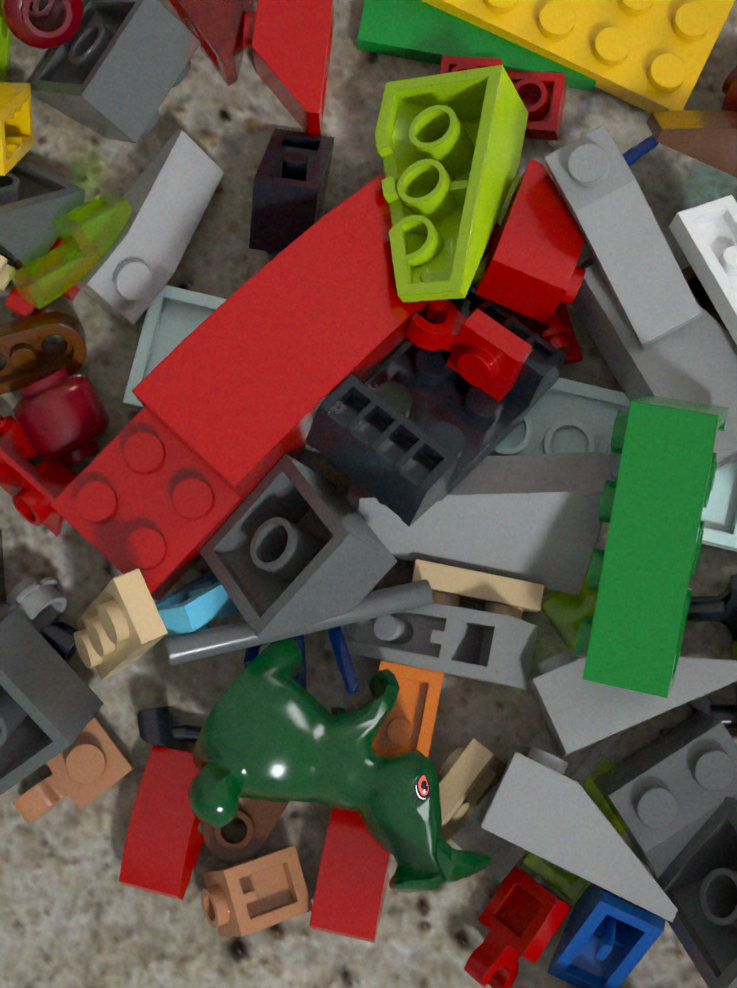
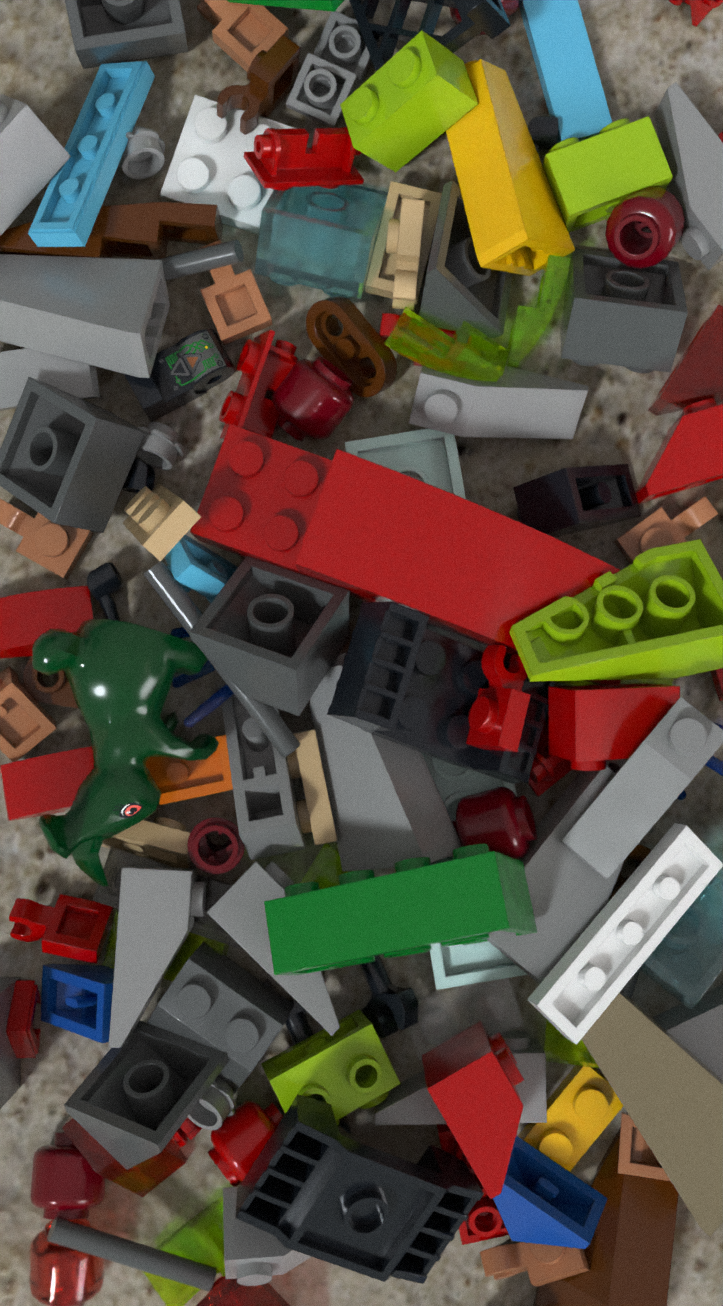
camera: 75 degrees right, 5 degrees up
(85, 157) = (531, 323): none -> clear neon green slope
(358, 124) = (660, 530): none -> nougat plate
(511, 716) = (213, 857): none -> dark red cone
(589, 408) = (497, 820): none -> dark red head

